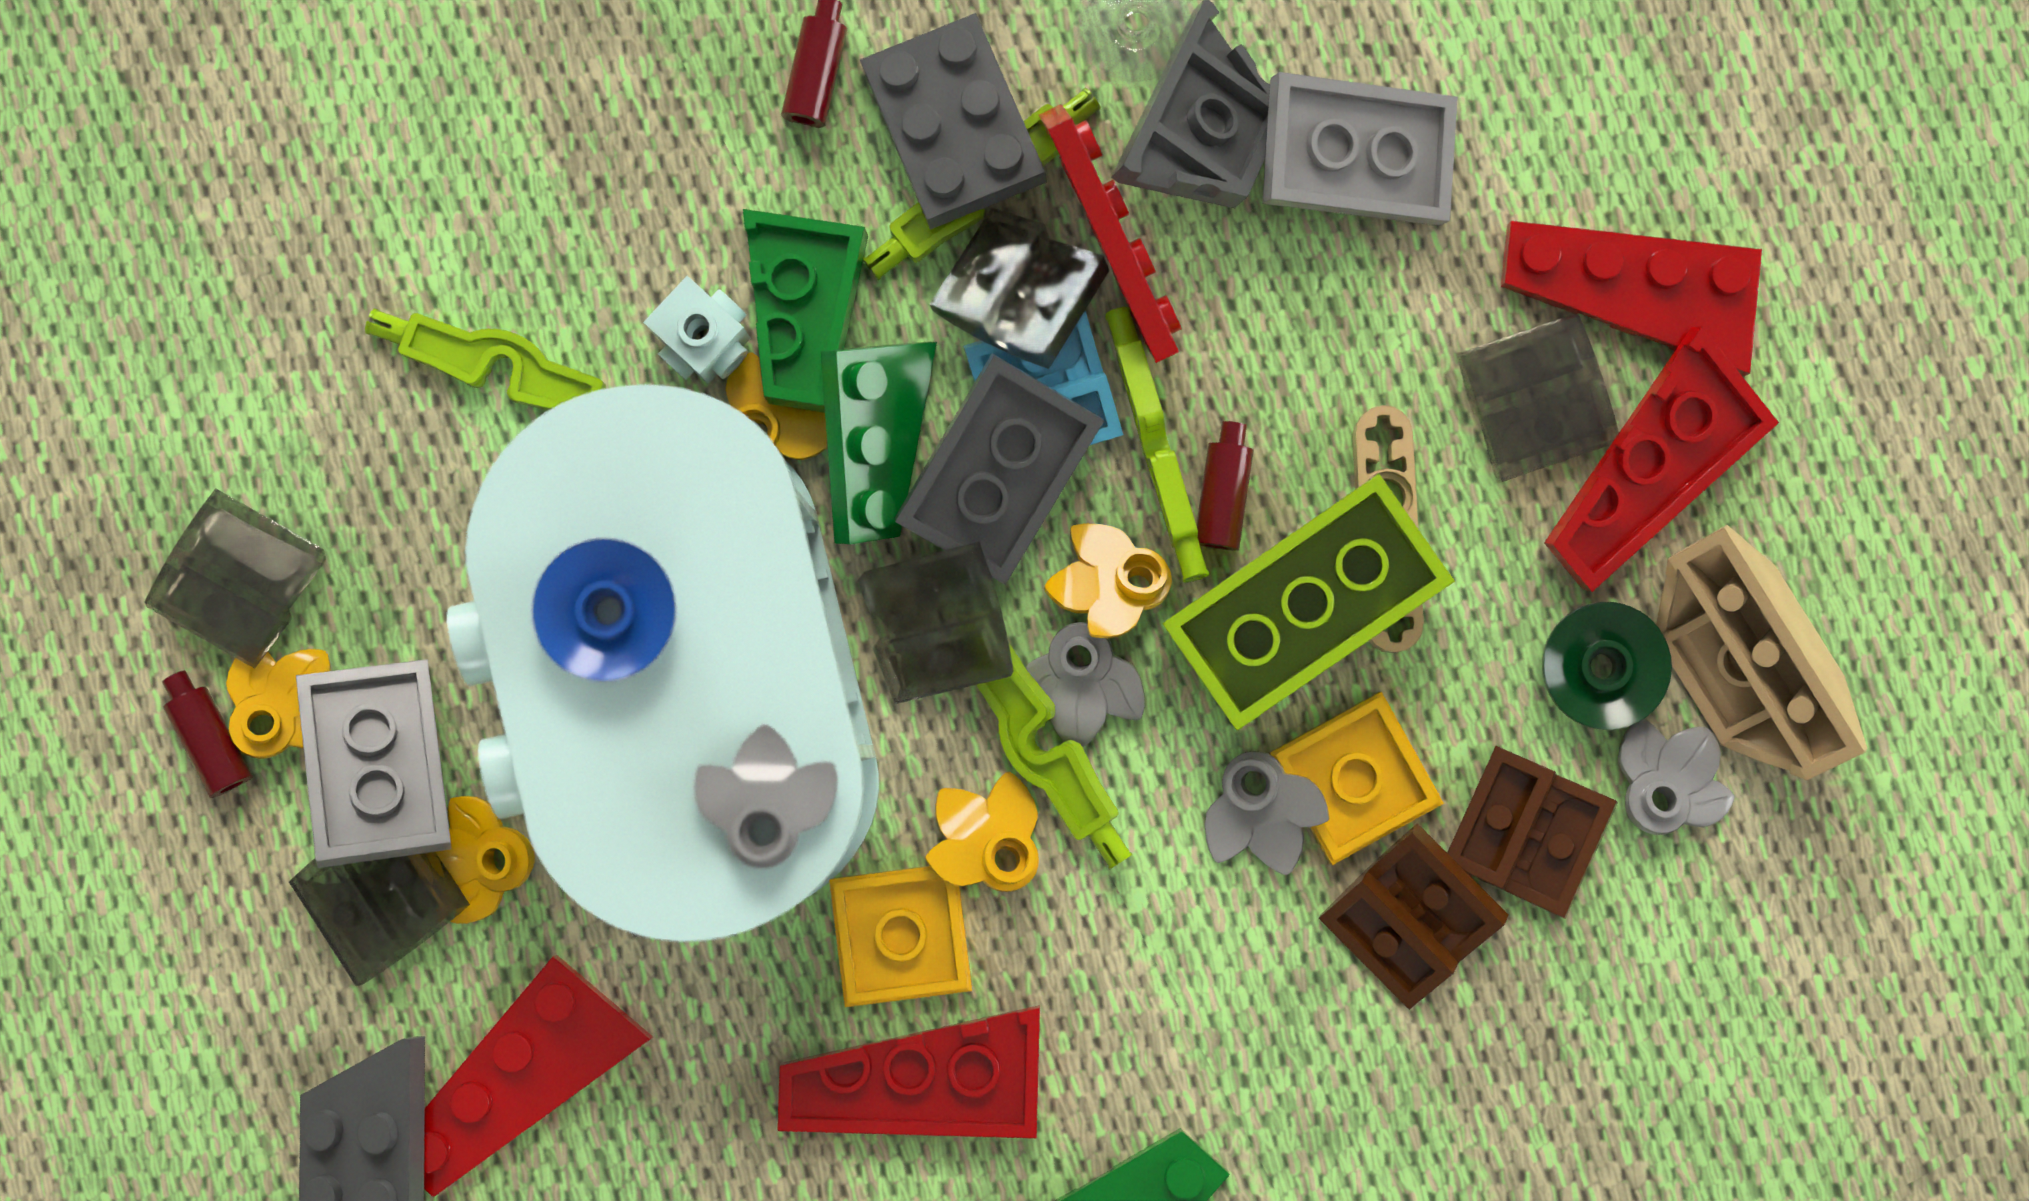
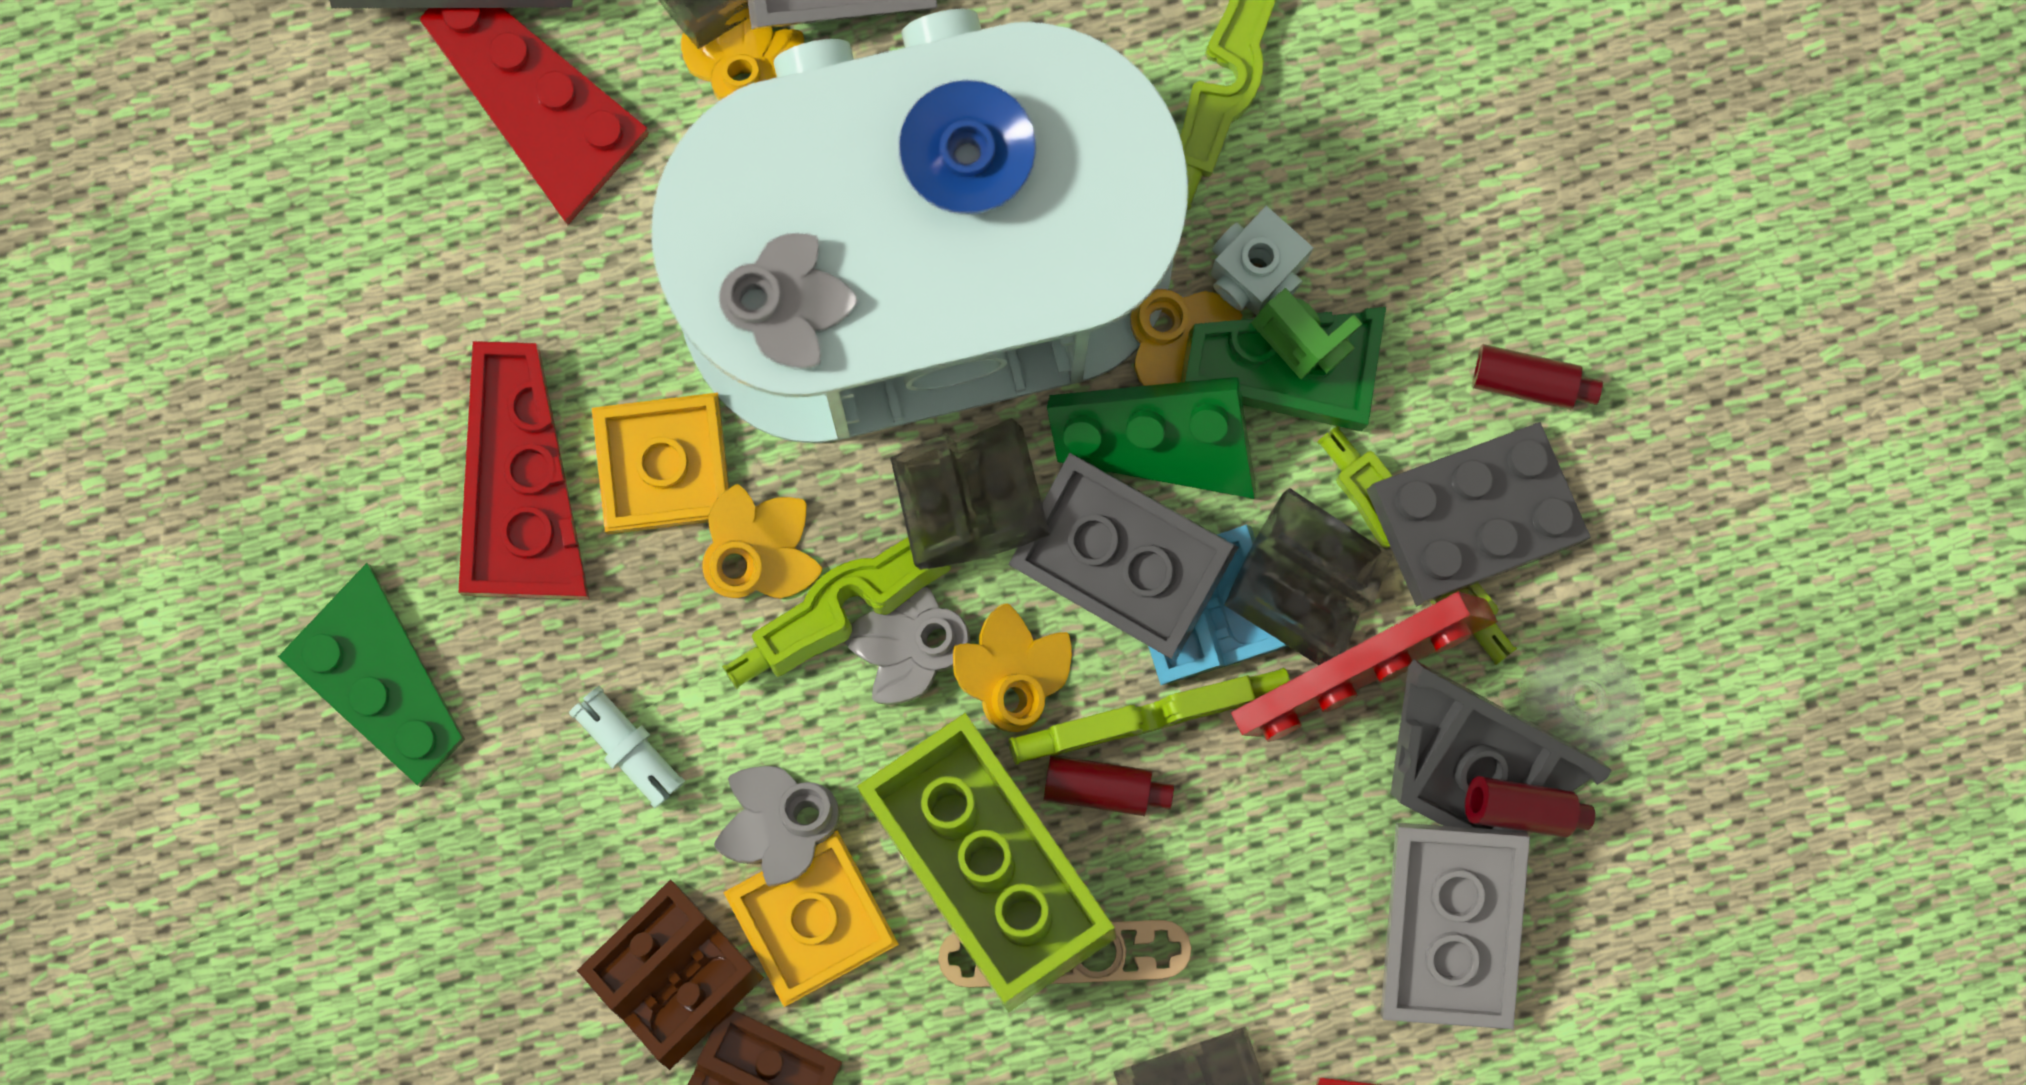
camera: 85 degrees right, 5 degrees down
(777, 292) = (1297, 334): none -> bright green bracket
(1190, 963) = (626, 747): none -> light aqua pin
(1248, 77) = (1526, 807): none -> dark red cylinder

